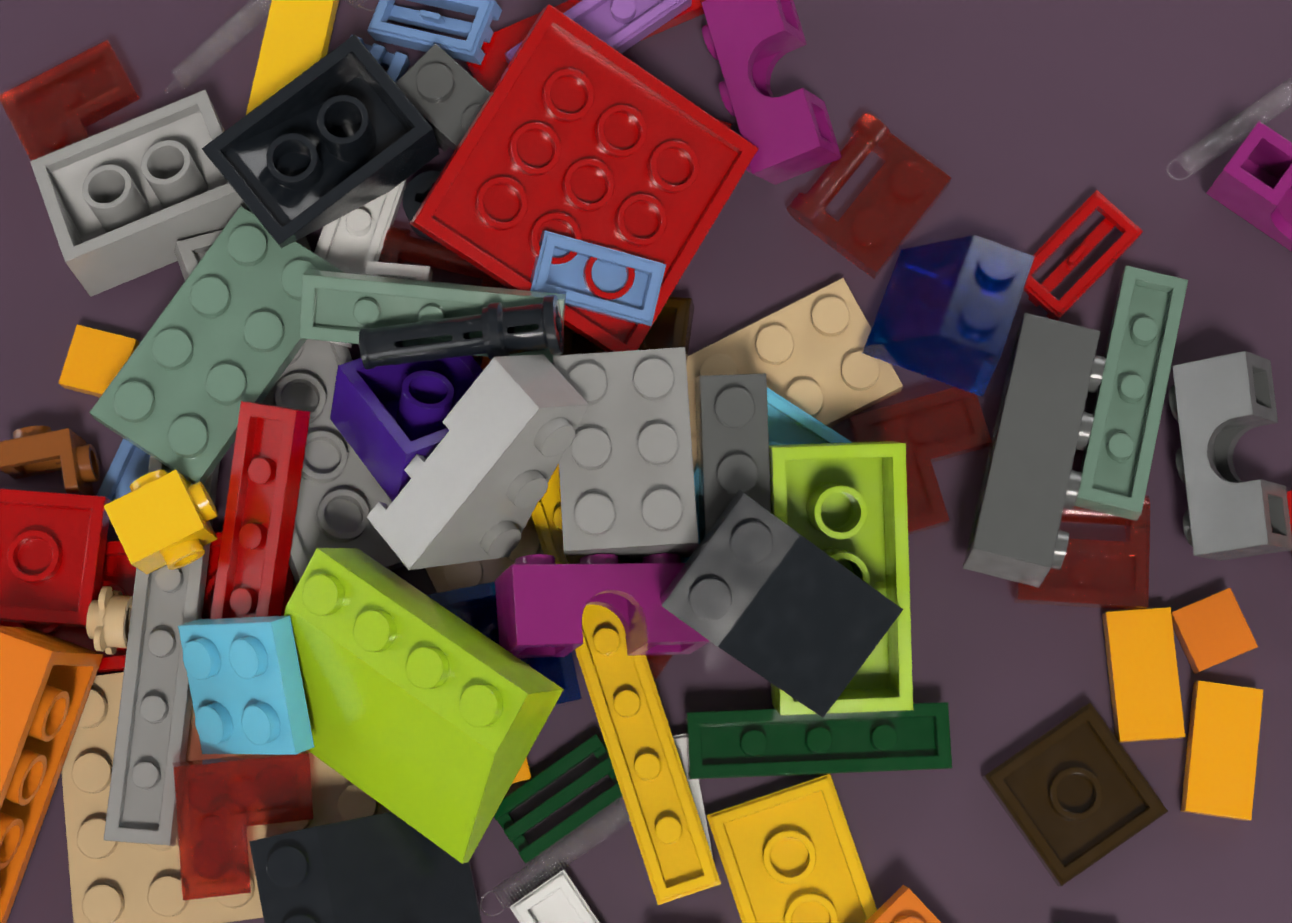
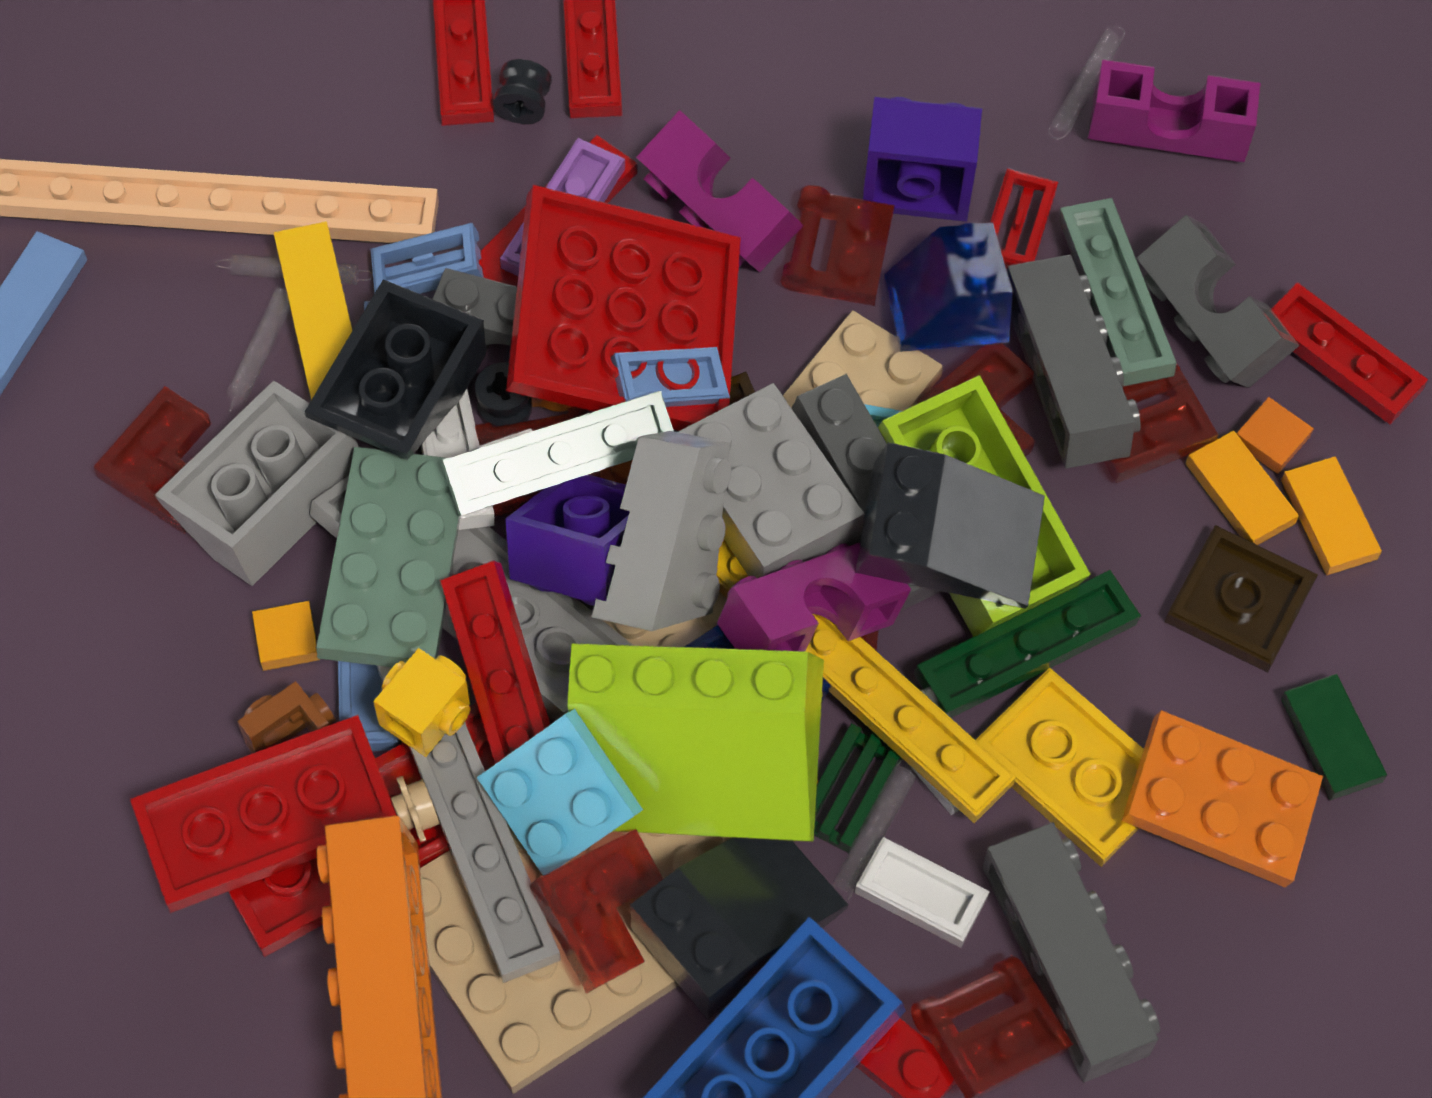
camera: 35 degrees left, 15 degrees down
(385, 347) = (616, 437): black pin -> none
(1001, 141) = (923, 157): none -> dark purple brick

